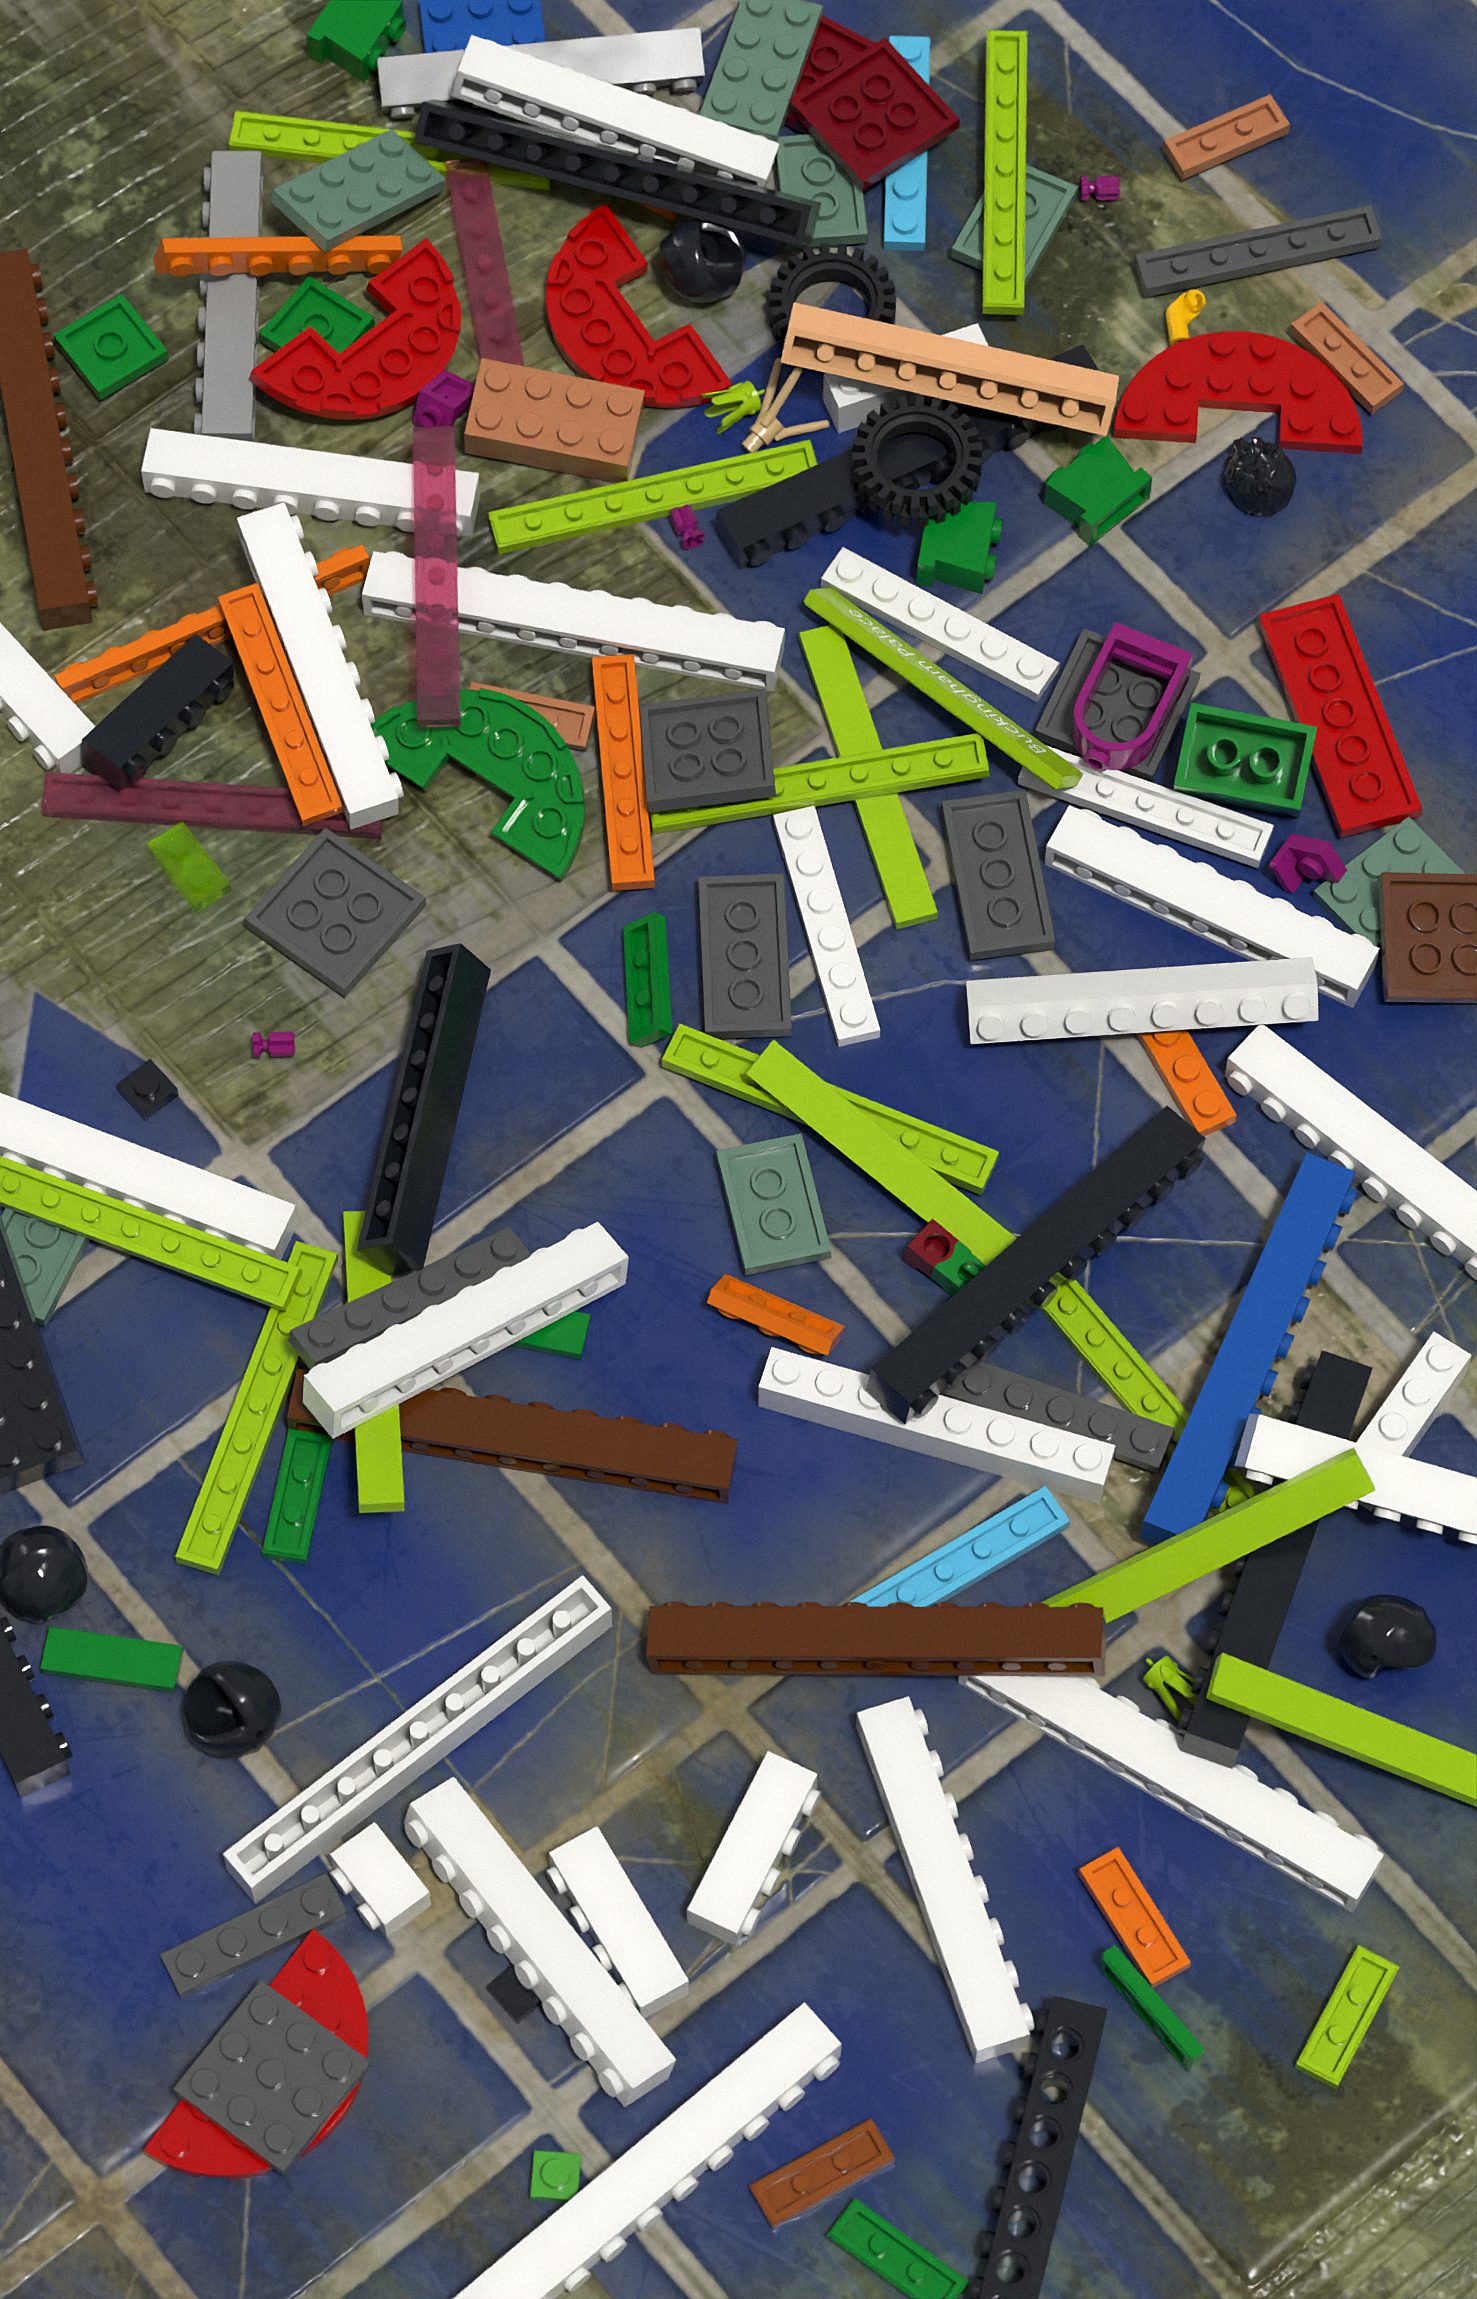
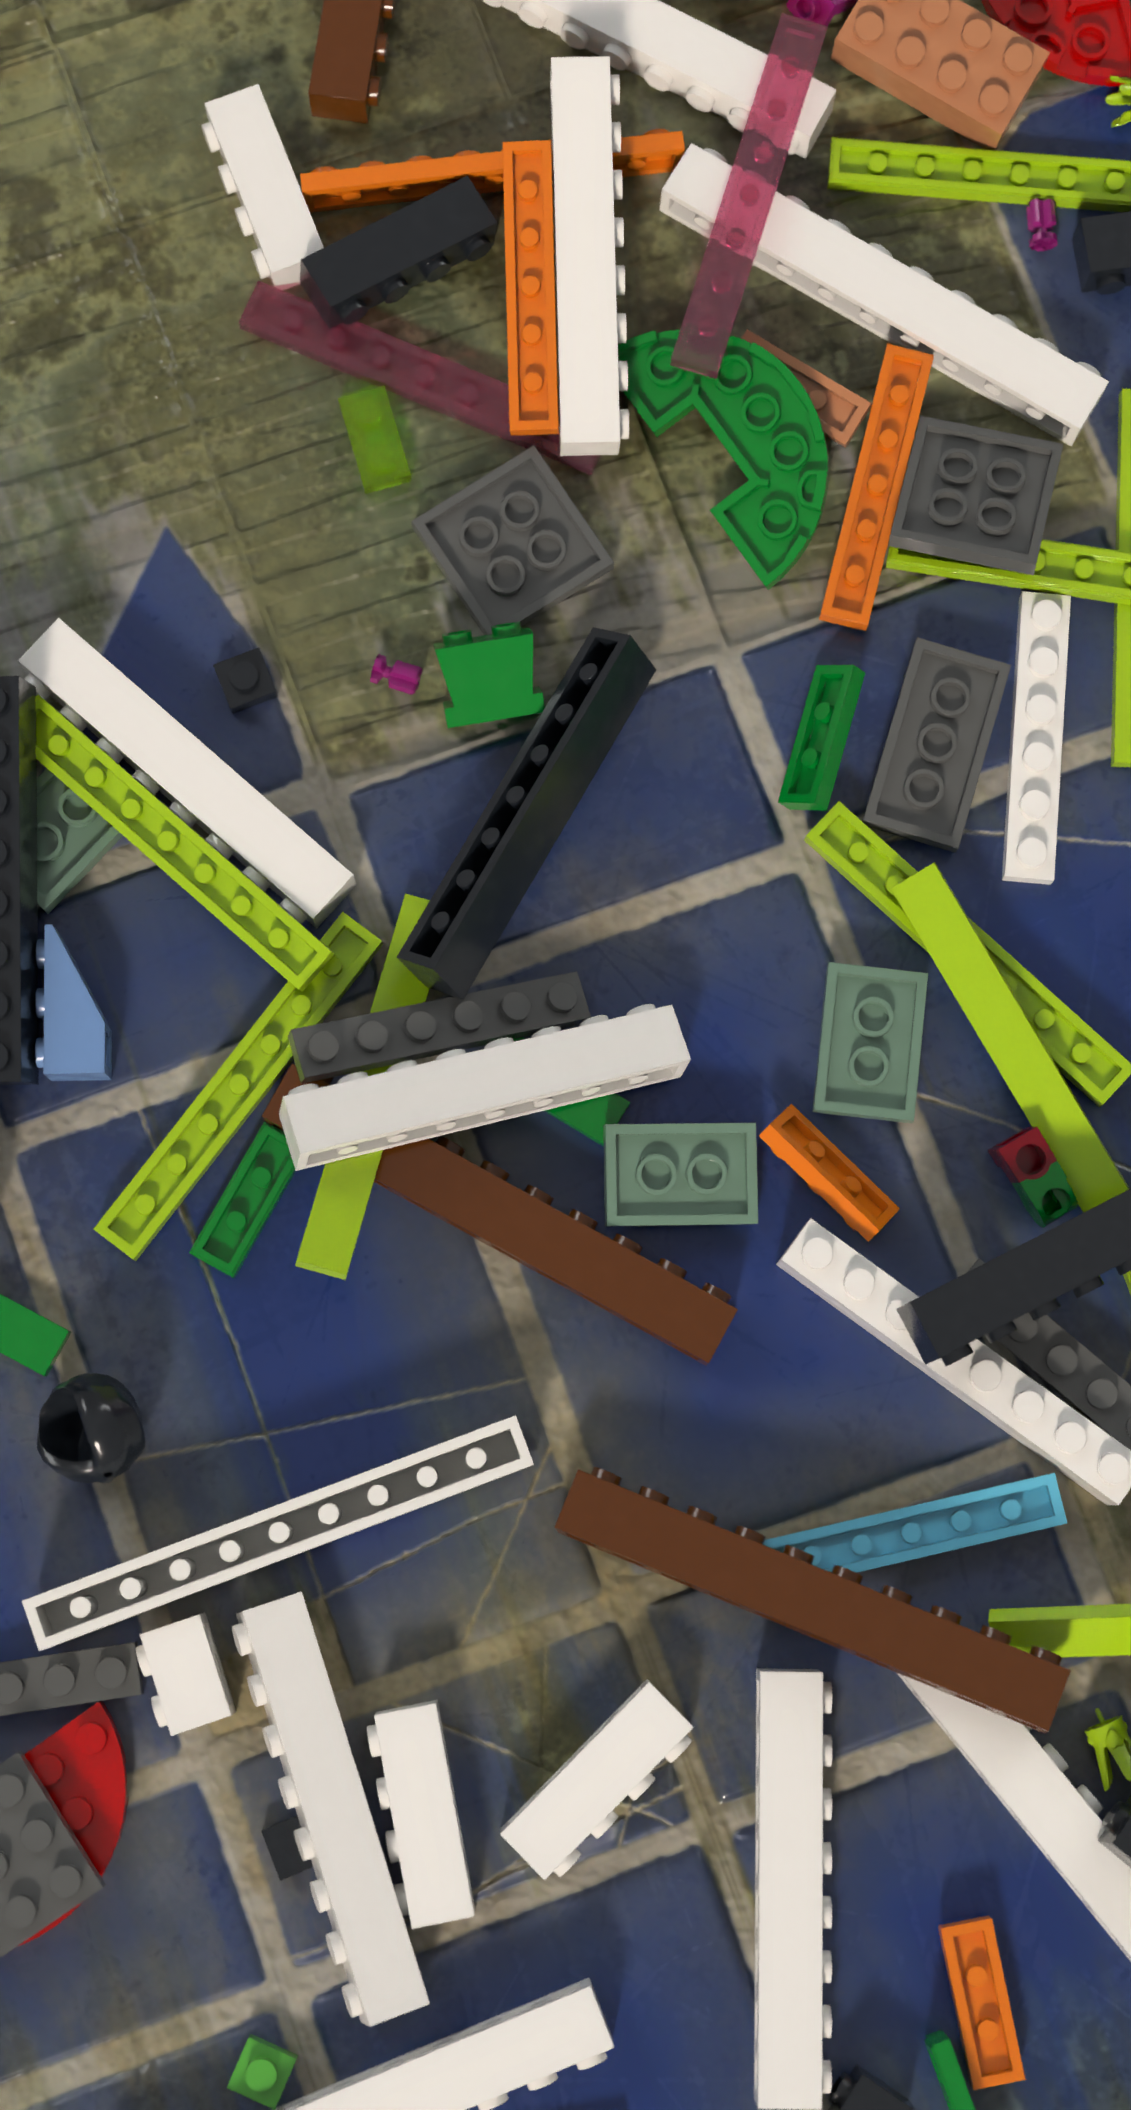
camera: 15 degrees right, 15 degrees up
(103, 1401) = (75, 1030): none -> medium blue slope
(352, 1016) = (489, 675): none -> green hips
(652, 1355) = (680, 1174): none -> sand green plate

